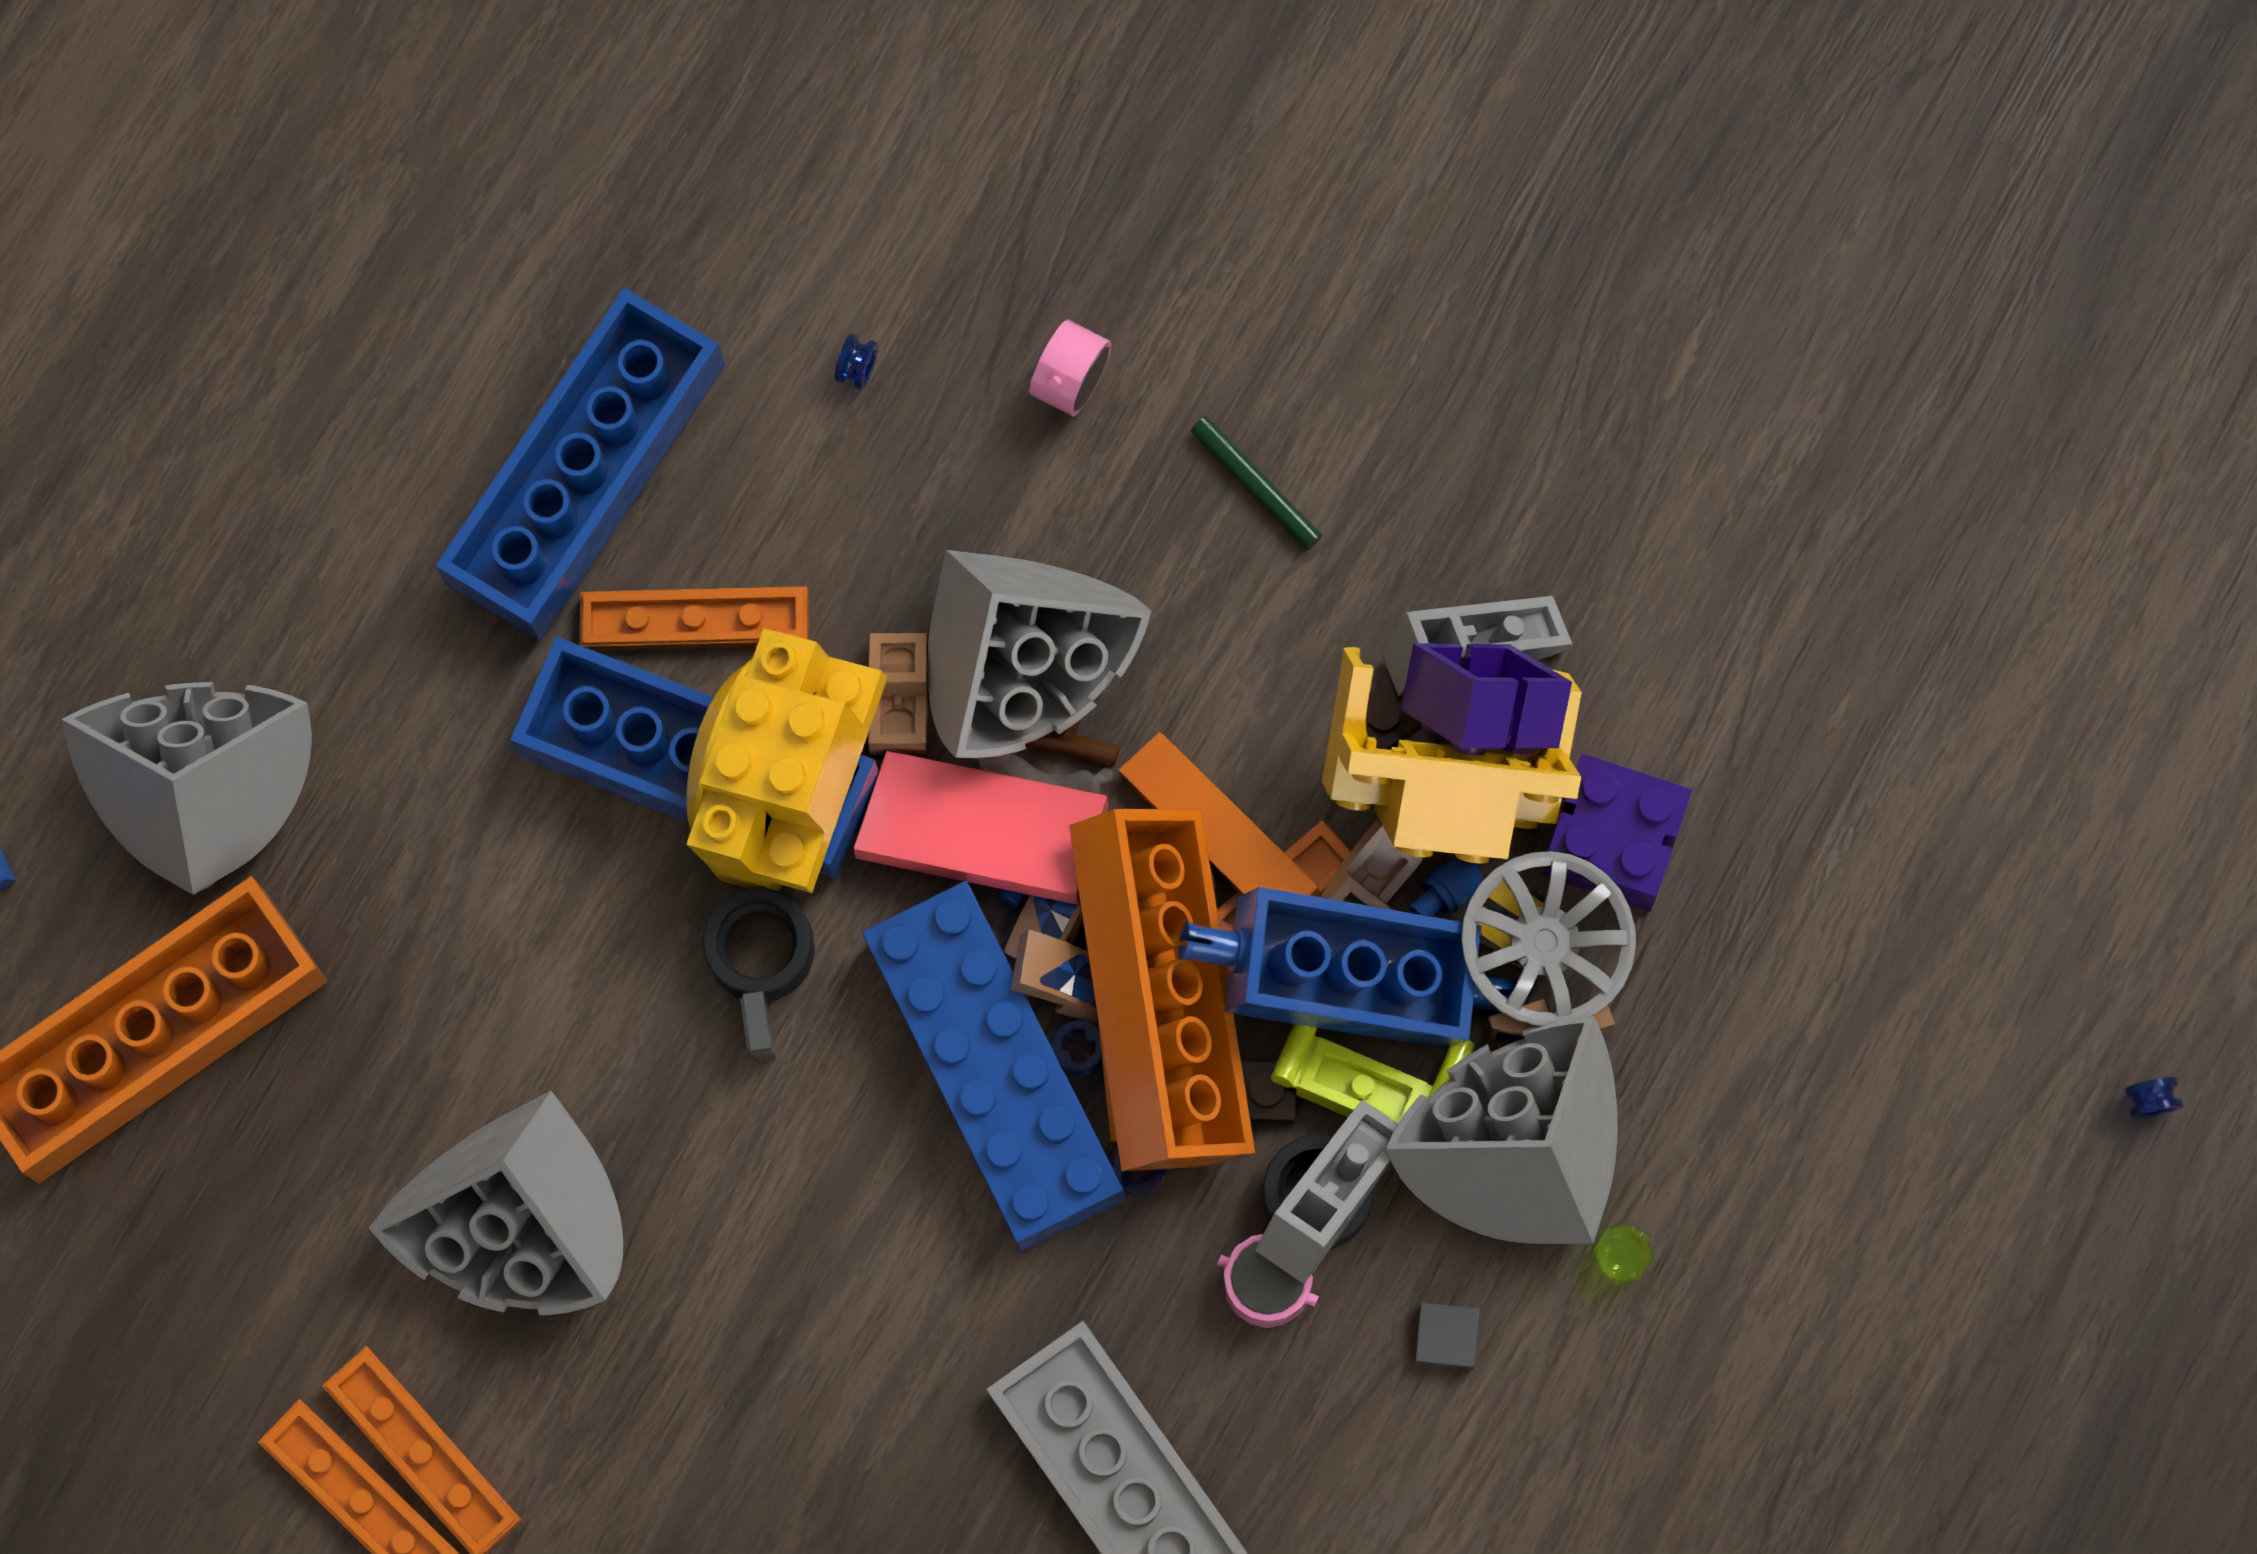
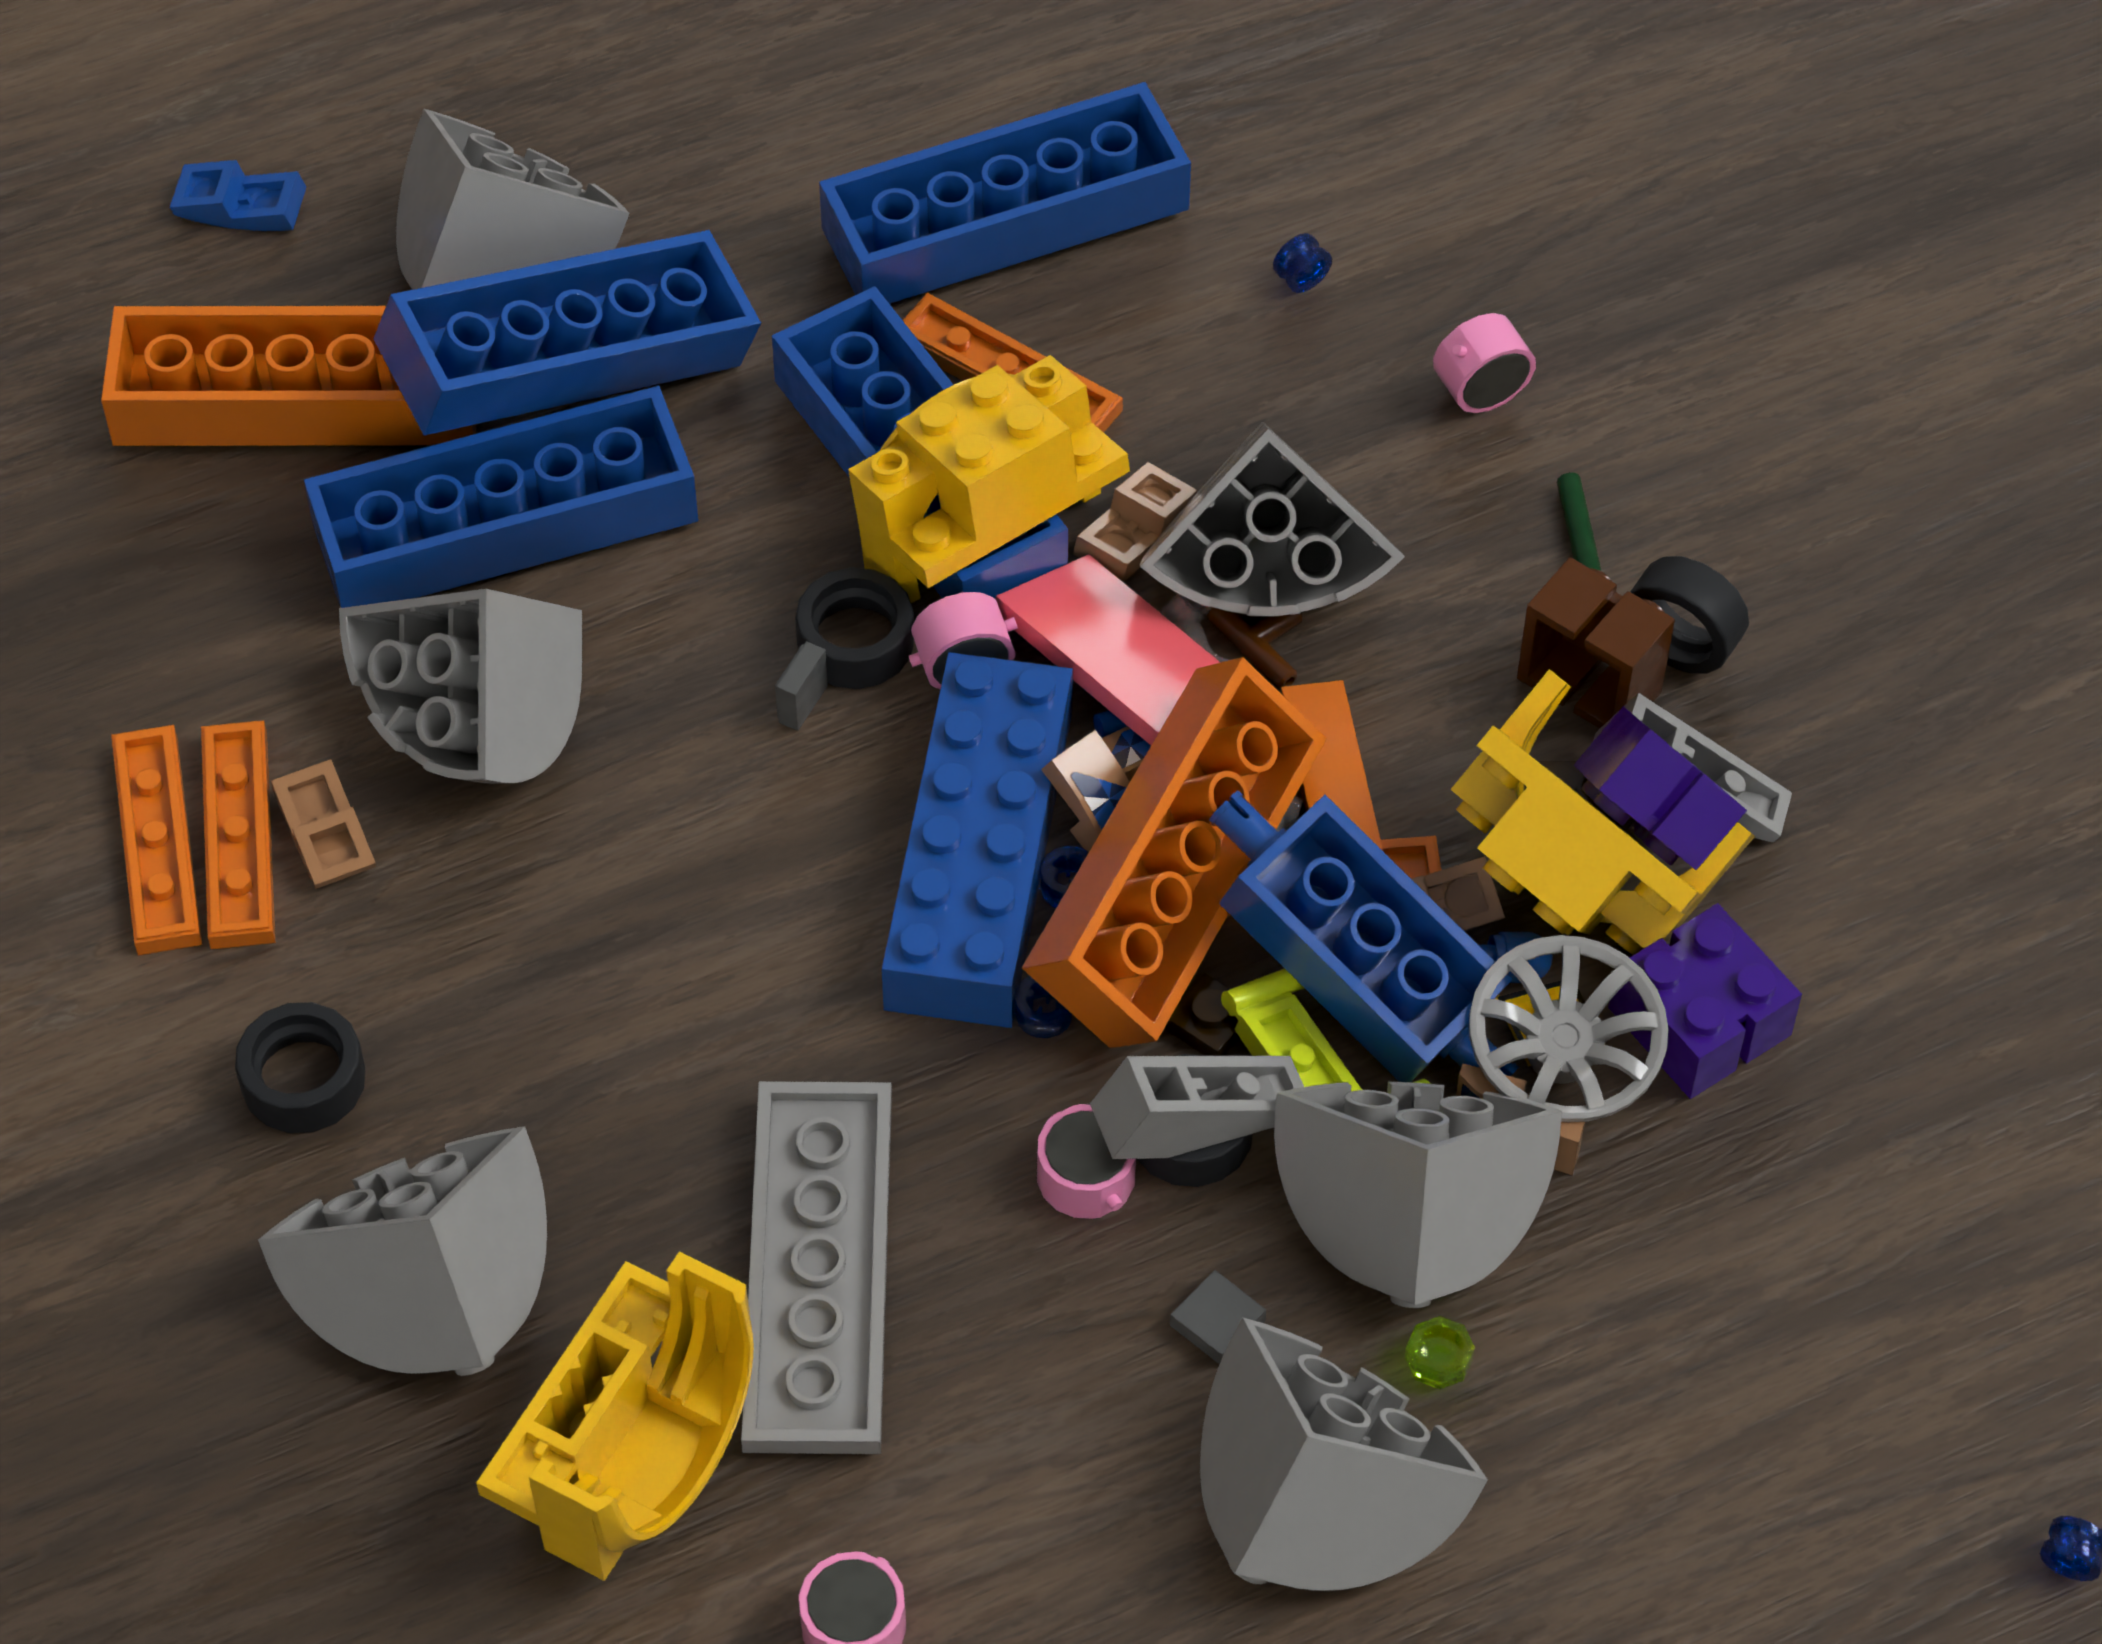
camera: 30 degrees right, 20 degrees down
(349, 855) = (565, 331): none -> blue brick
(403, 1029) = (502, 500): none -> blue brick
(484, 1401) = (323, 824): none -> medium nougat slope
(854, 903) = (962, 625): none -> bright pink piece
(1370, 580) = (1584, 621): none -> reddish brown piece
(1383, 503) = (1708, 598): none -> black tyre
(1614, 1414) = (1322, 1470): none -> light grey brick

